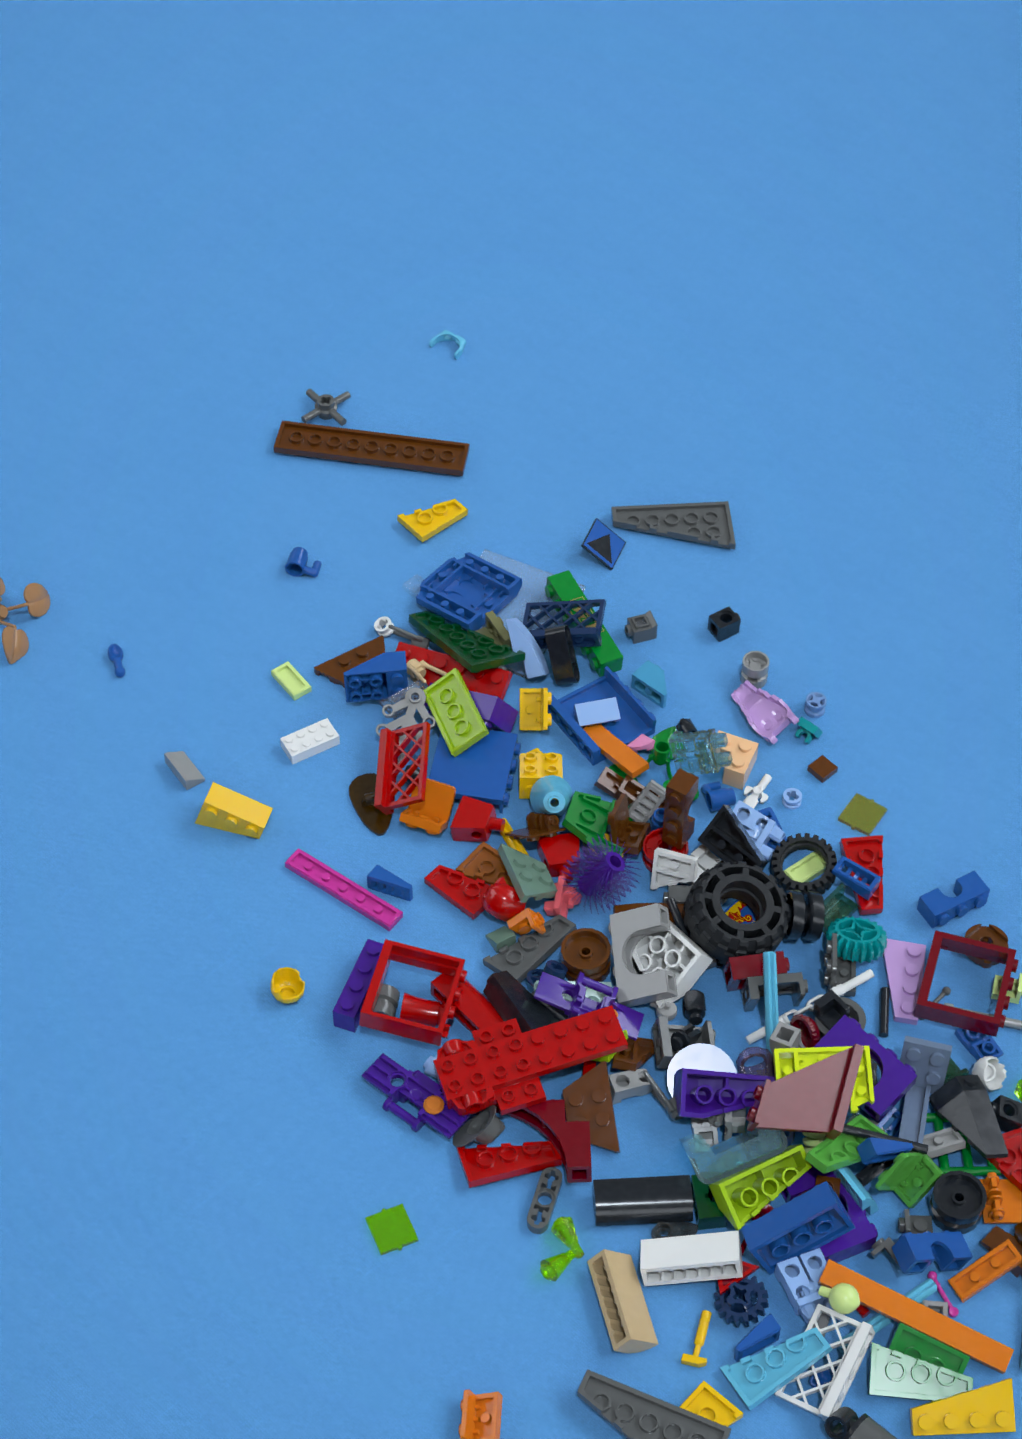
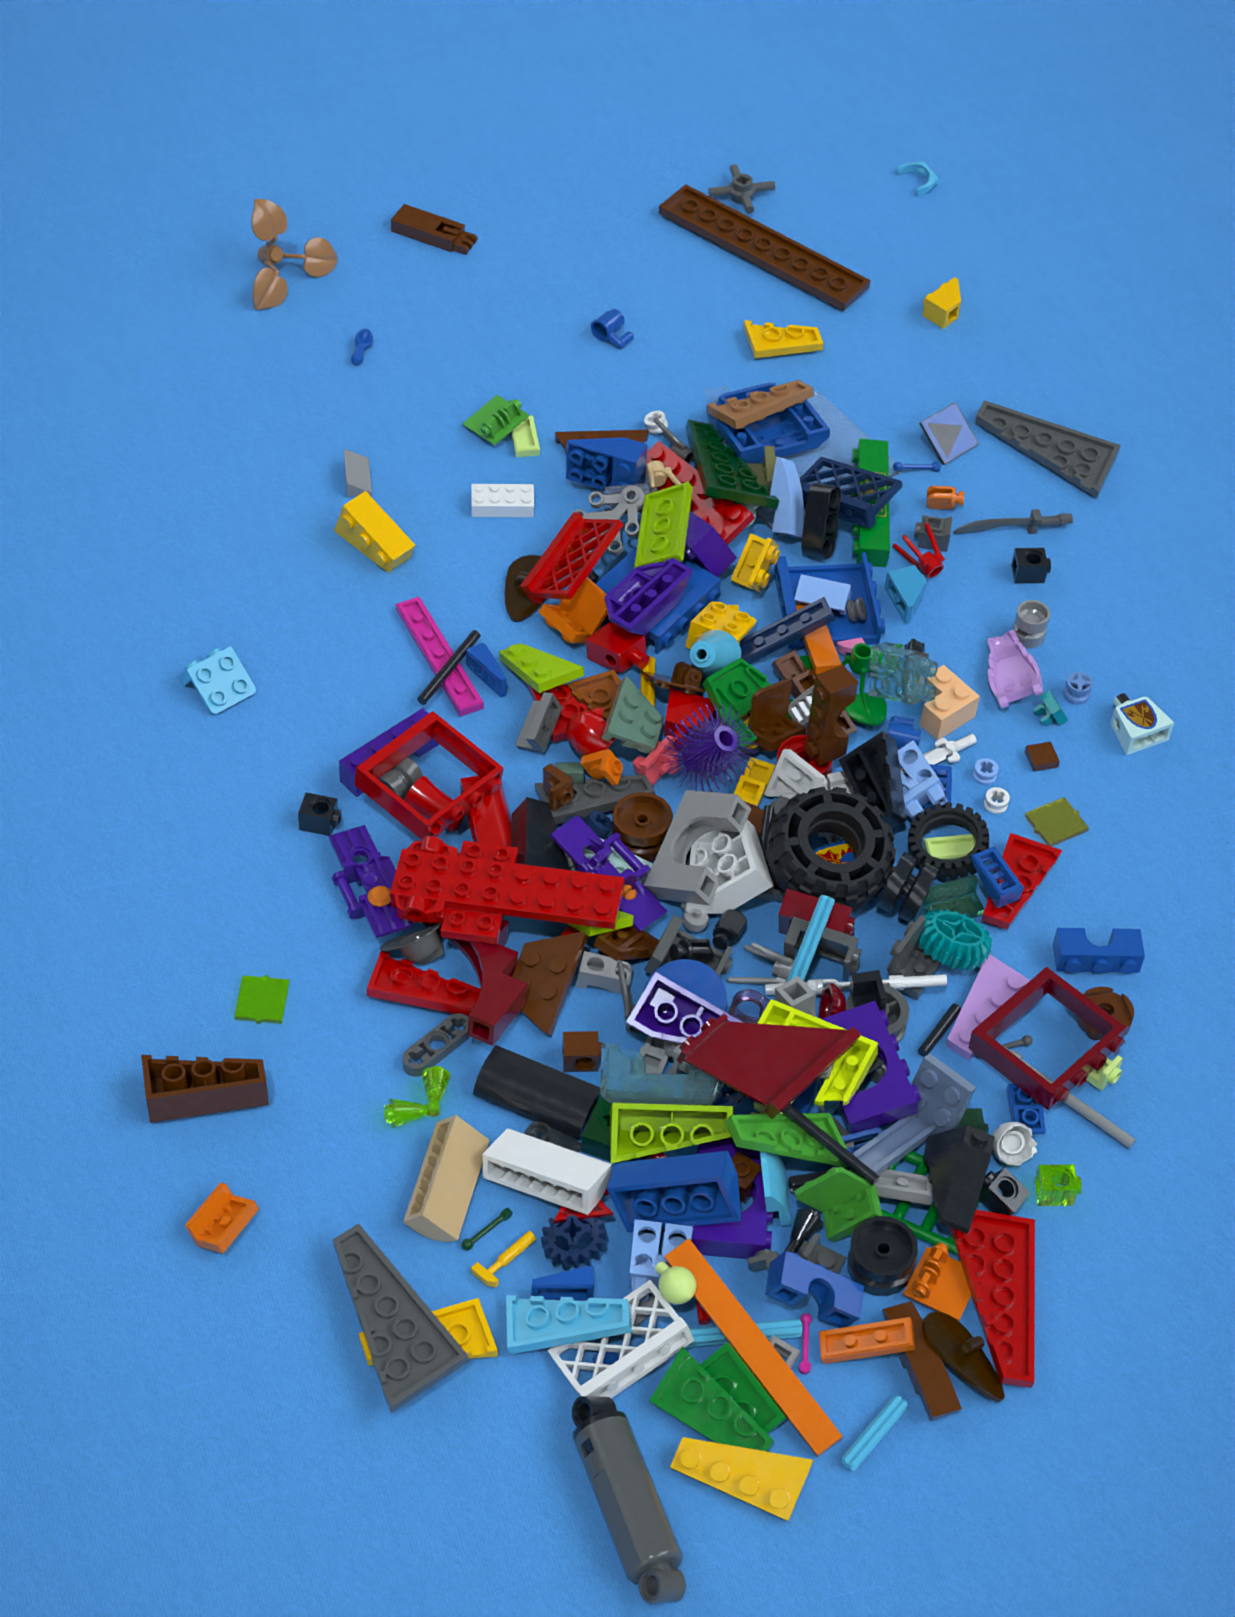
camera: 25 degrees right, 0 degrees up
(109, 538) = (432, 230): none -> reddish brown hinge
(190, 986) = (219, 680): none -> medium azure bracket
(263, 676) = (496, 419): none -> bright green hinge
(287, 985) = (314, 719): yellow hair -> none
(338, 1069) = (319, 814): none -> black brick
(360, 896) = (449, 666): none -> black bar
(396, 1323) = (201, 1086): none -> reddish brown wedge
(428, 866) = (539, 668): none -> lime wing
(457, 911) = (539, 723): none -> dark grey panel
(458, 581) = (760, 404): none -> medium nougat wing
(478, 771) = (647, 595): none -> dark purple wedge
(506, 953) = (558, 786): none -> reddish brown bracket
(534, 441) = (943, 304): none -> yellow slope
(592, 752) = (786, 630): none -> dark blue tile
(607, 574) = (935, 466): none -> blue hinge
(627, 713) = (856, 609): none -> dark grey bush
(631, 596) = (944, 497): none -> orange arm
(642, 892) = (754, 782): none -> yellow slope
(652, 1153) = (581, 1051): none -> reddish brown brick
(653, 654) = (929, 563): none -> red plant
(665, 1343) = (467, 1244): none -> dark green hinge
(703, 590) = (1031, 523): none -> dark grey sword
(751, 1017) = (781, 967): none -> light grey plant
(810, 812) = (998, 794): none -> white bush
(873, 713) = (1139, 723): none -> light aqua torso
(879, 1150) = (819, 1154): blue slope -> none
(890, 1206) = (805, 1225): none -> black cone

